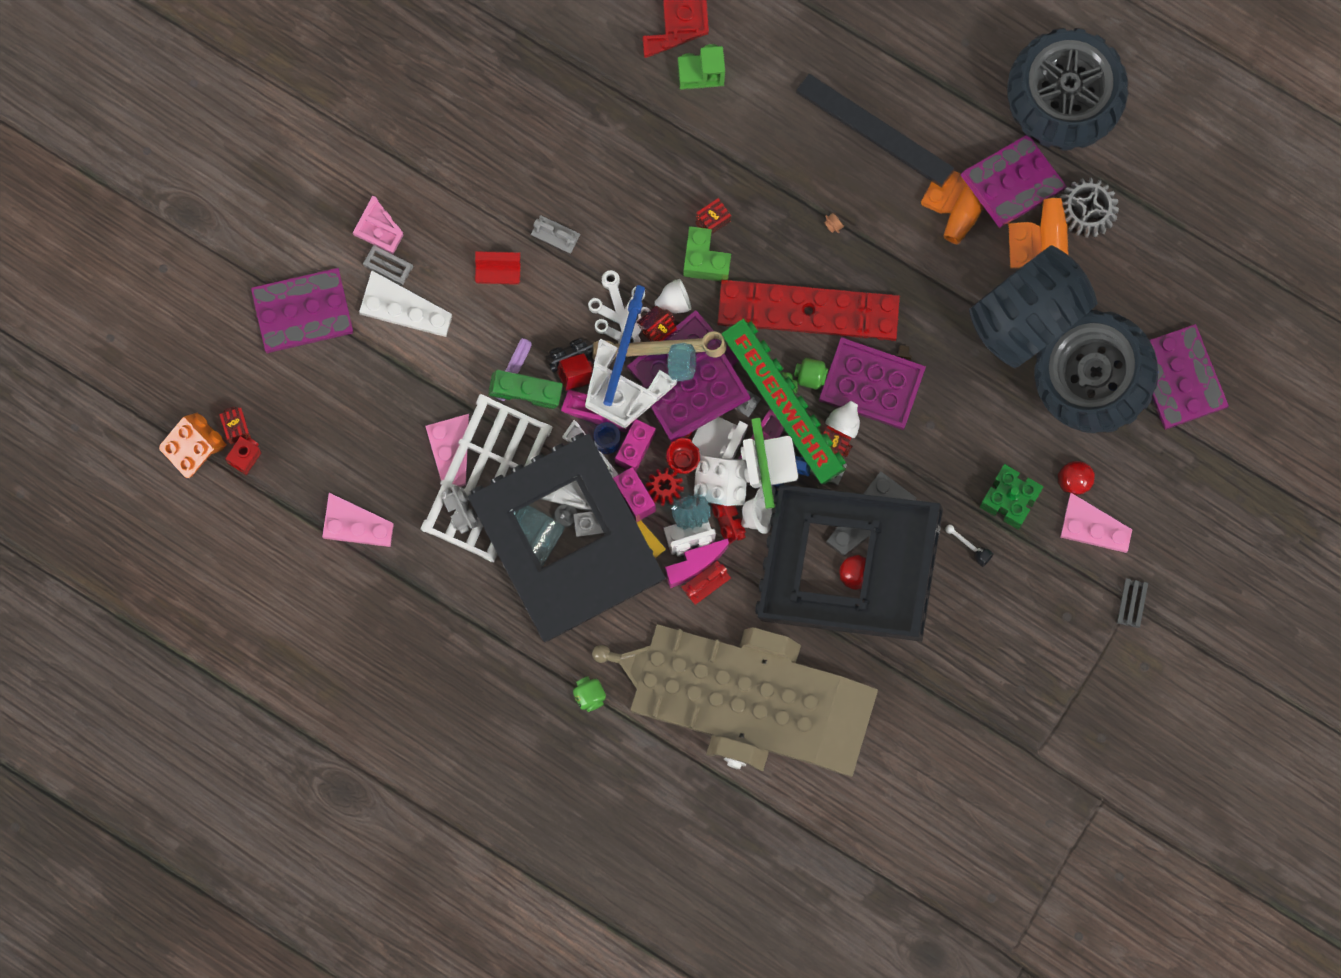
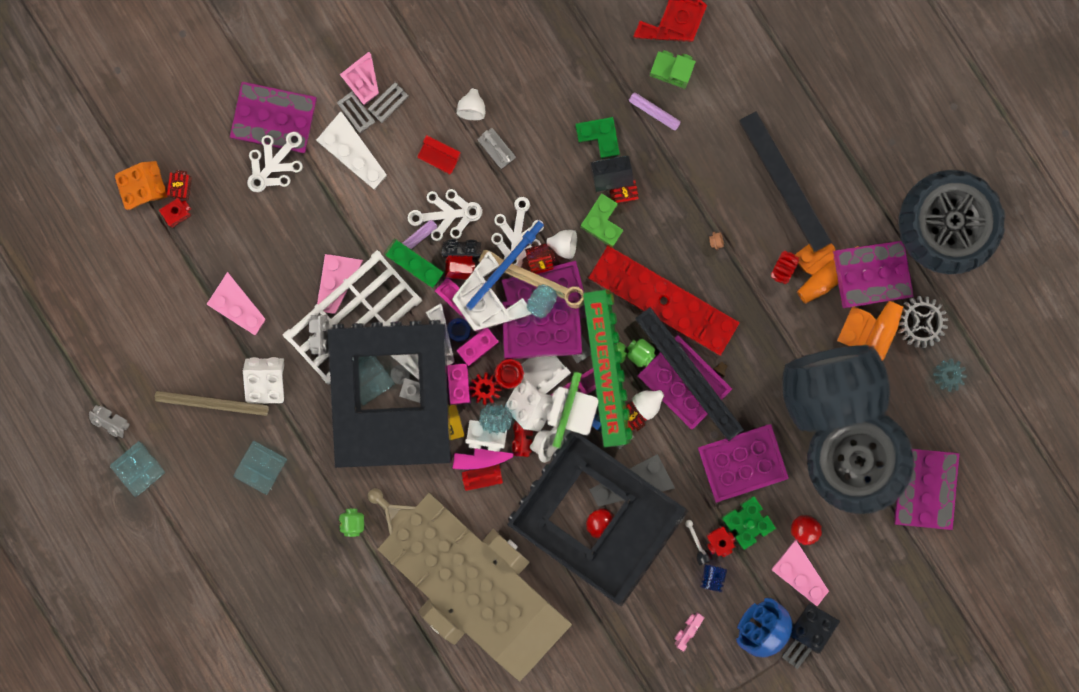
camera: 25 degrees right, 10 degrees up
(263, 710) = (101, 418): none -> light grey hinge
(325, 357) = (272, 164): none -> white plant
(329, 746) = (137, 469): none -> clear light blue slope
(376, 639) = (211, 403): none -> dark tan axle
(423, 588) = (263, 380): none -> white bracket
(424, 222) = (399, 91): none -> light grey tile
(462, 682) = (260, 467): none -> clear light blue slope
(508, 203) = (471, 106): none -> white helmet
(536, 326) = (448, 214): none -> white plant
(660, 167) = (600, 130): none -> green plate
(690, 201) = (612, 173): none -> black slope
(703, 121) = (654, 111): none -> lavender axle
(873, 371) = (689, 374): none -> black tile
(918, 216) = (784, 267): none -> red gear
(975, 438) = (743, 463): none -> magenta plate
(995, 522) = (714, 538): none -> red brick
(1004, 571) = (713, 578): none -> clear blue piece
(1006, 629) = (683, 637): none -> bright pink wing
(1094, 598) = (773, 633): none -> blue cylinder
(1136, 574) = (814, 628): none -> black hinge
(1138, 252) = (950, 367): none -> clear light blue gear

